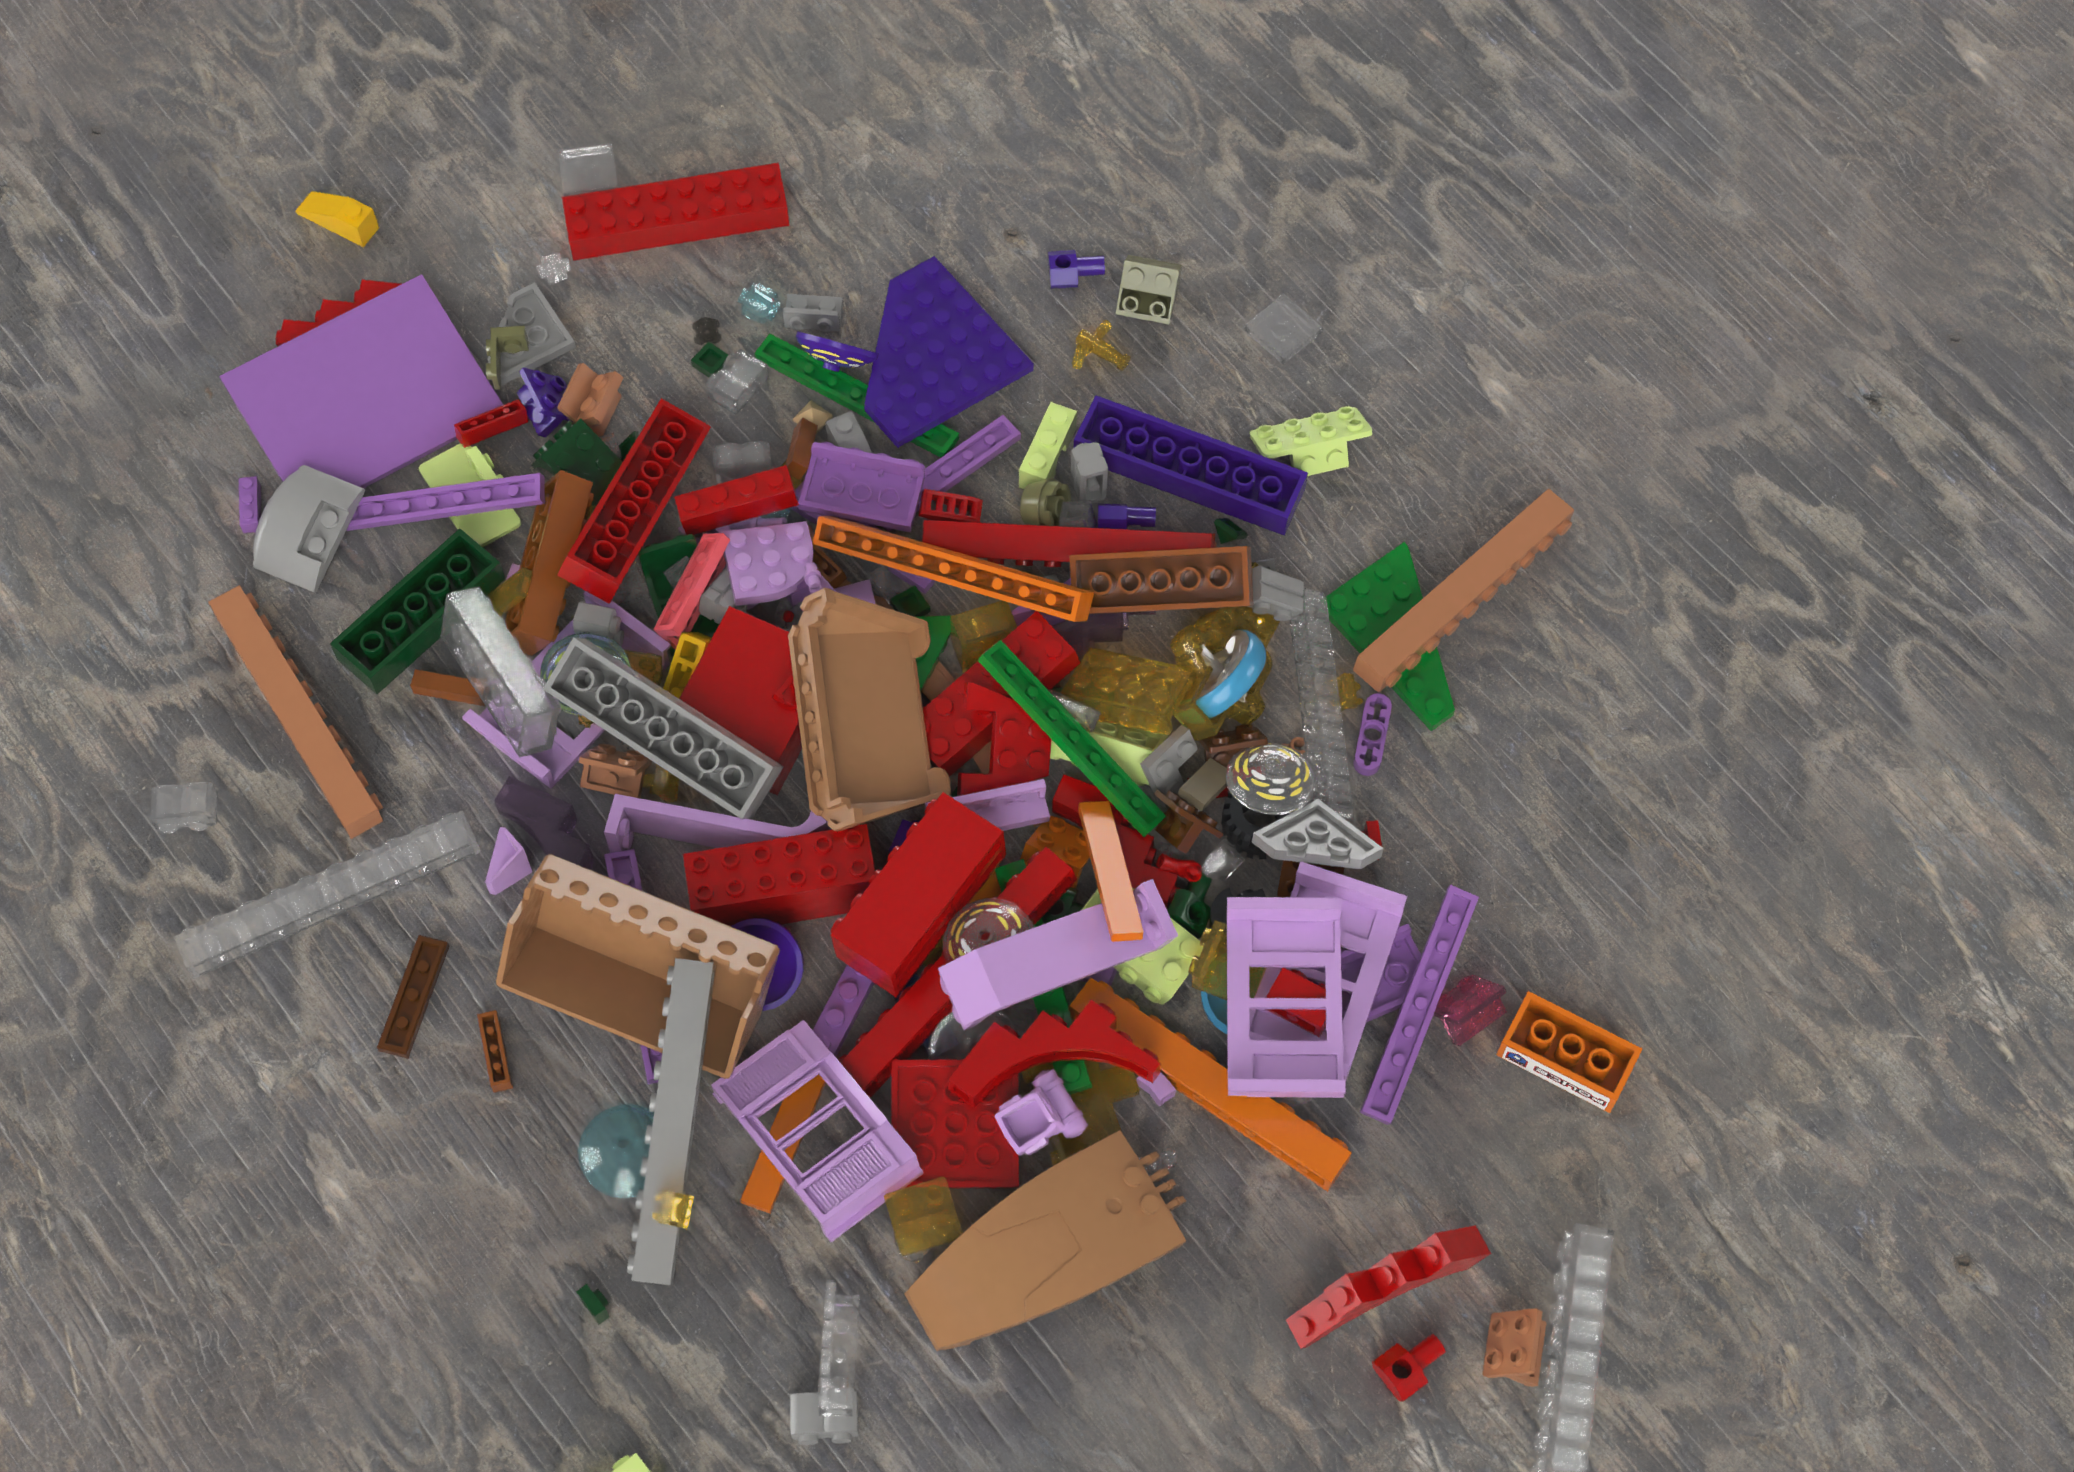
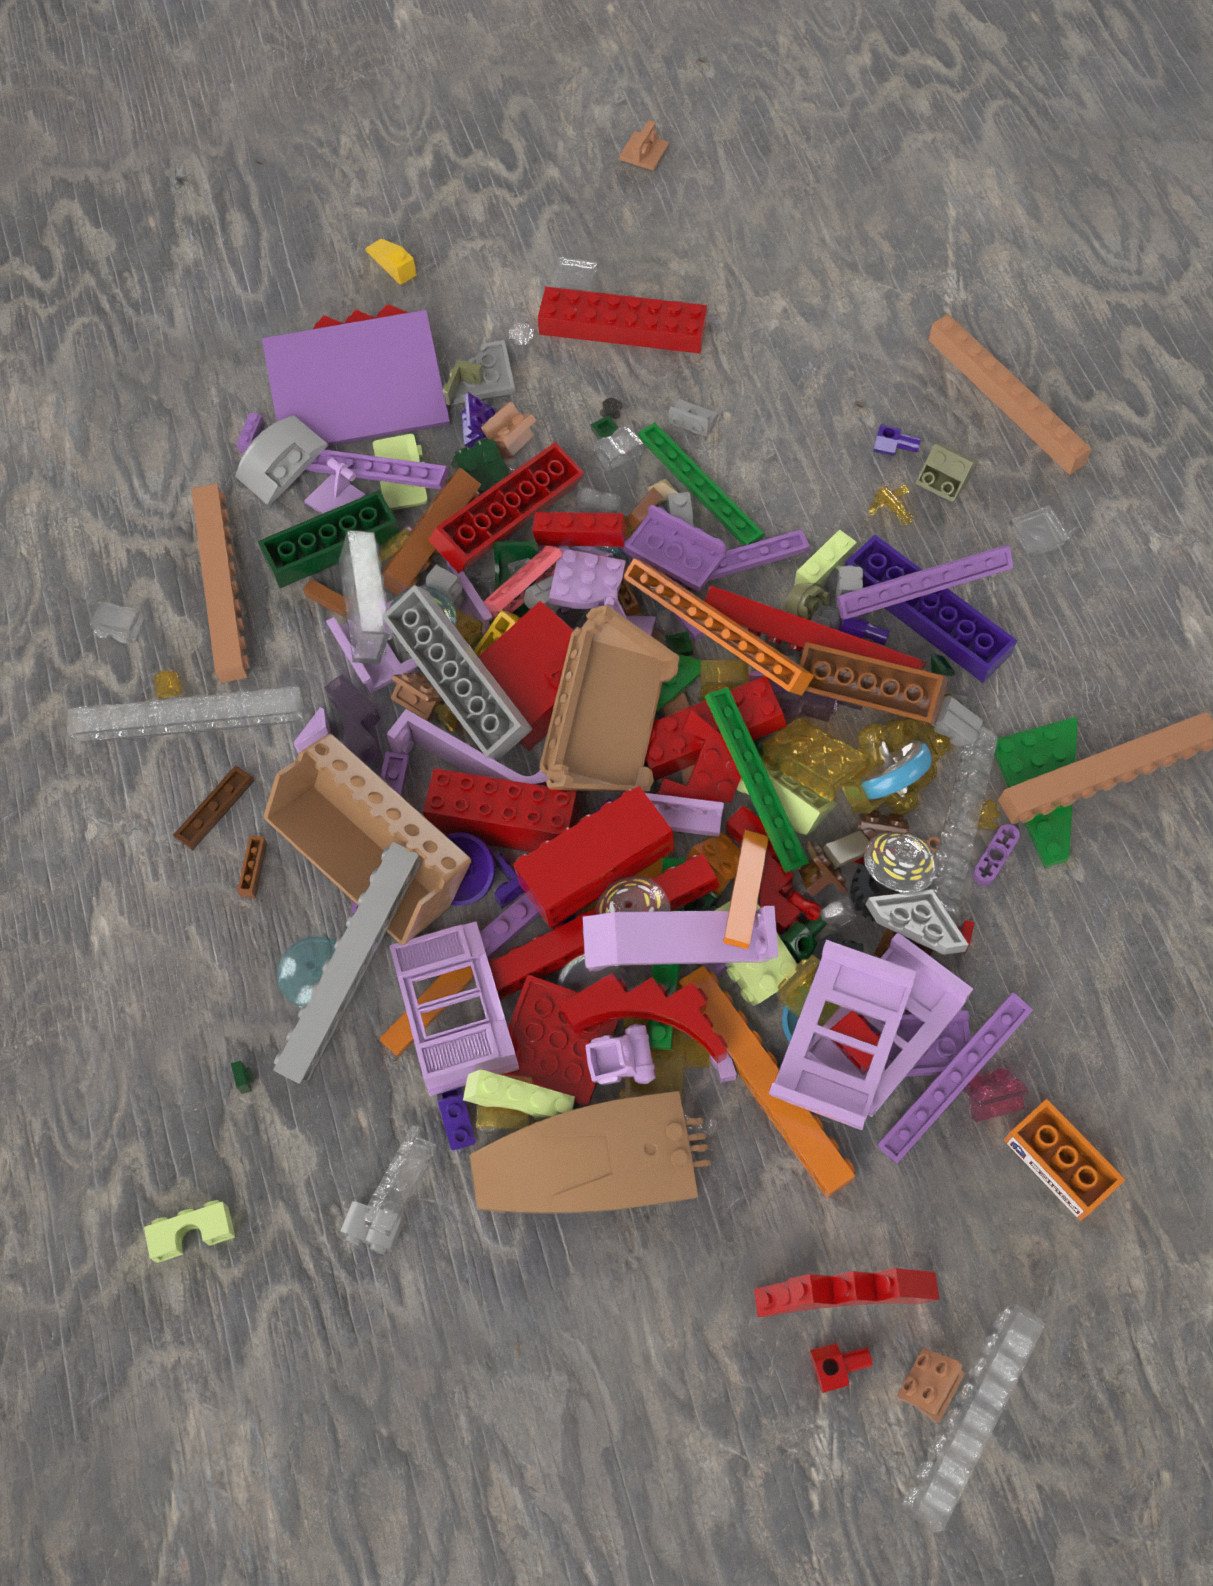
camera: 25 degrees right, 0 degrees up
(284, 863) = (167, 684): none -> clear yellow tile
(398, 548) = (335, 489): none -> lavender plate
(491, 423) = (434, 426): red piece -> none
(674, 1209) = (321, 1029): clear yellow tile -> none
(759, 303) = (655, 399): clear light blue head -> none
(822, 972) = (508, 890): none -> dark purple bracket
(835, 353) = (694, 448): dark purple dish -> none
(871, 1257) = (456, 1119): none -> dark purple bracket
(916, 1203) = (501, 1091): none -> yellowish green arch
(935, 354) = (768, 472): dark purple plate -> none
(964, 503) = (739, 579): red slope -> none
(1082, 713) = (772, 764): clear slope -> none
(1163, 763) = (822, 821): light grey plate -> none
(1177, 437) = (925, 582): none -> medium lavender plate
(1186, 167) = (1009, 394): none -> nougat brick
(1313, 442) = (1032, 621): yellowish green bracket -> none

